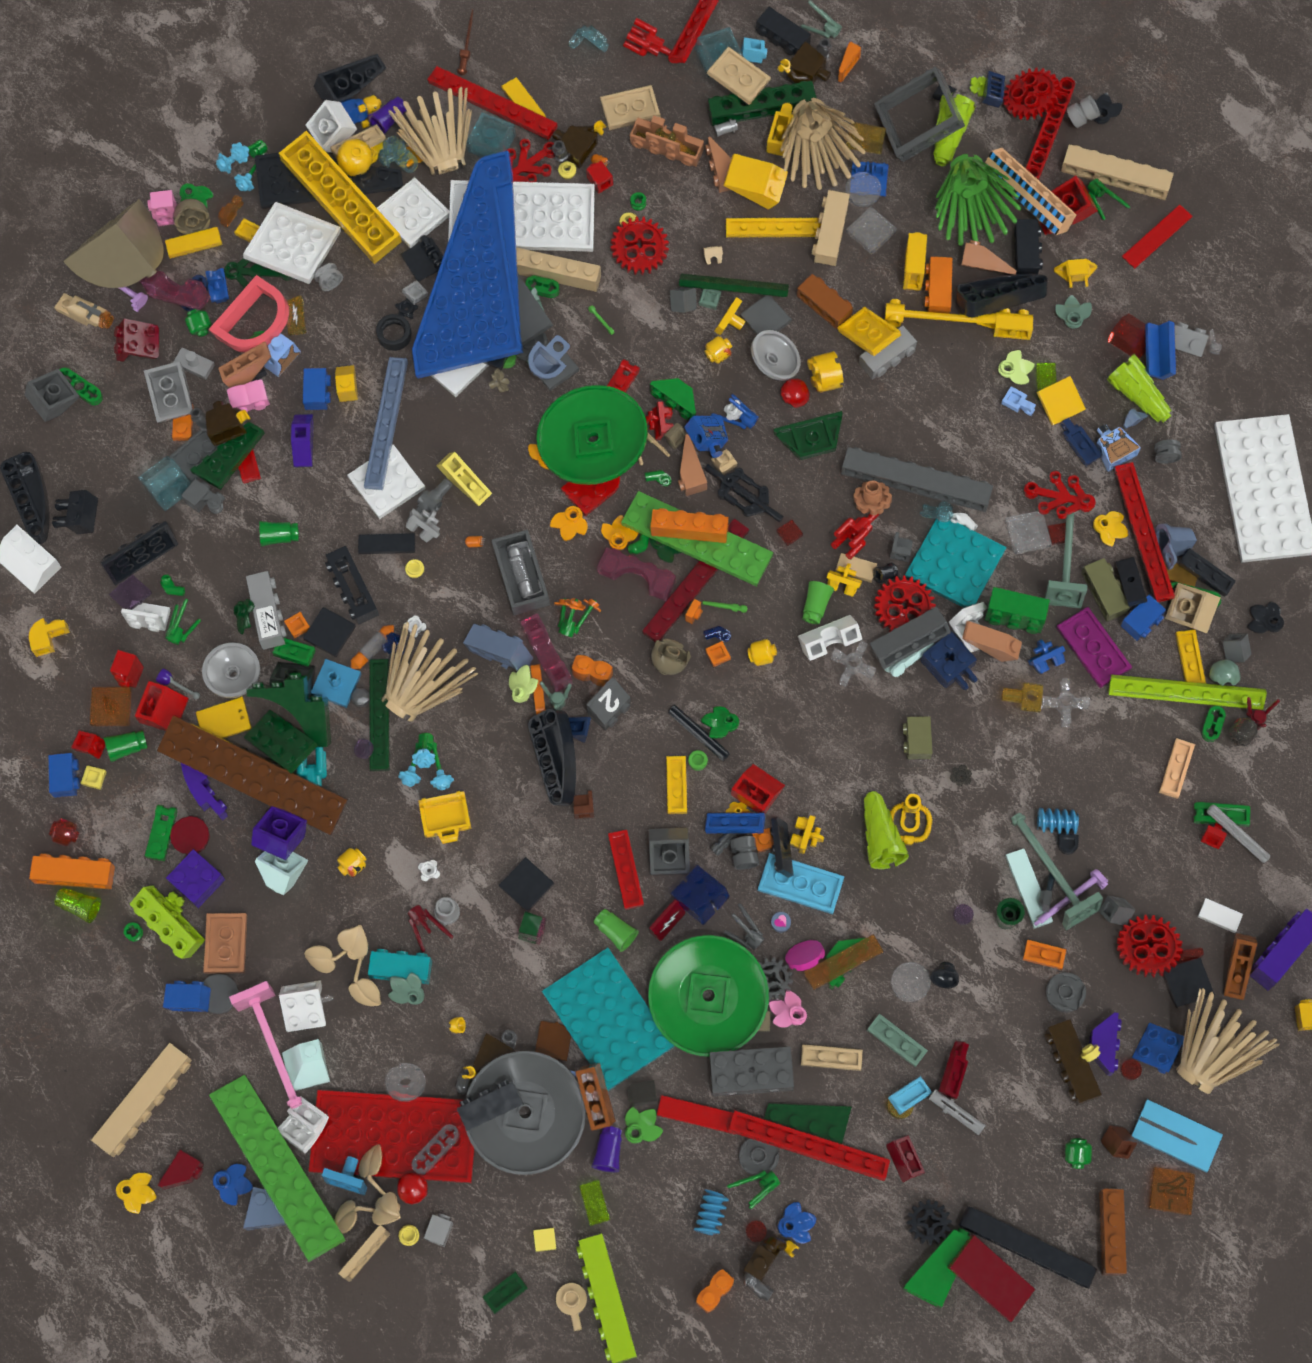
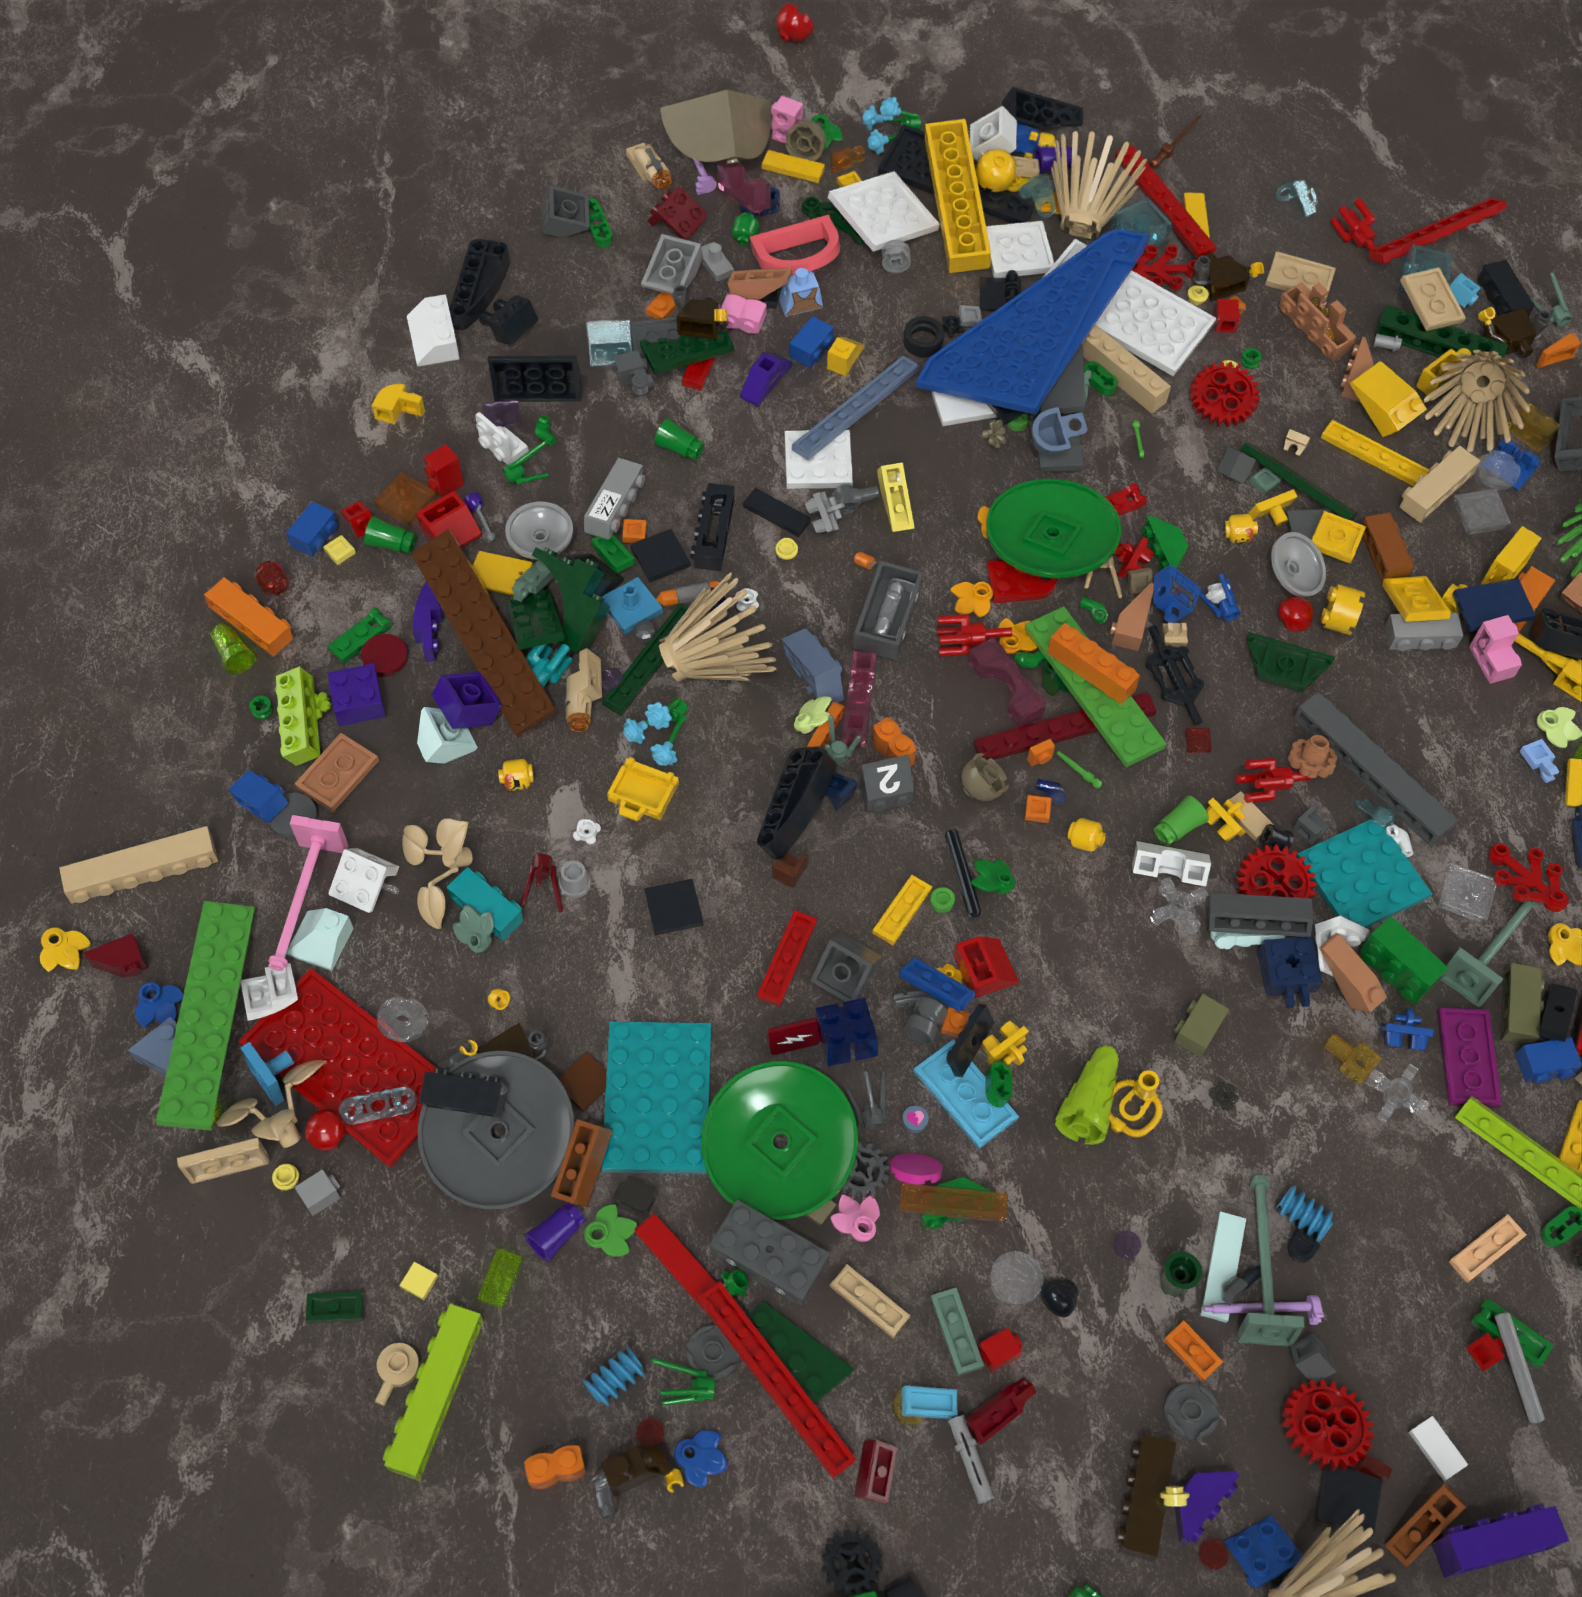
camera: 30 degrees right, 10 degrees down
(105, 115) = (793, 25): none -> red cylinder
(217, 285) = (786, 209): blue hips -> none
(242, 611) = (591, 489): dark green plate -> none
(255, 713) = (532, 581): none -> sand green hinge
(296, 320) = (841, 274): clear yellow slope -> none
(351, 772) = (581, 690): none -> tan plate
(532, 928) = (647, 952): dark green piece -> none
(568, 626) = (899, 688): green plant -> none
(586, 555) = (967, 634): none -> red plant
(615, 929) = (732, 1011): bright green plant -> none
(742, 1104) = (735, 1282): none -> green plate
(787, 314) = (1338, 536): none -> yellow tile
(816, 865) = (1004, 1085): none -> green beam
(923, 305) = (1493, 601): none -> dark blue tile
(931, 1033) = (1000, 1350): none -> red brick
(942, 337) = (1494, 649): none -> bright pink brick
(1057, 533) = (1500, 914): clear red tile -> none

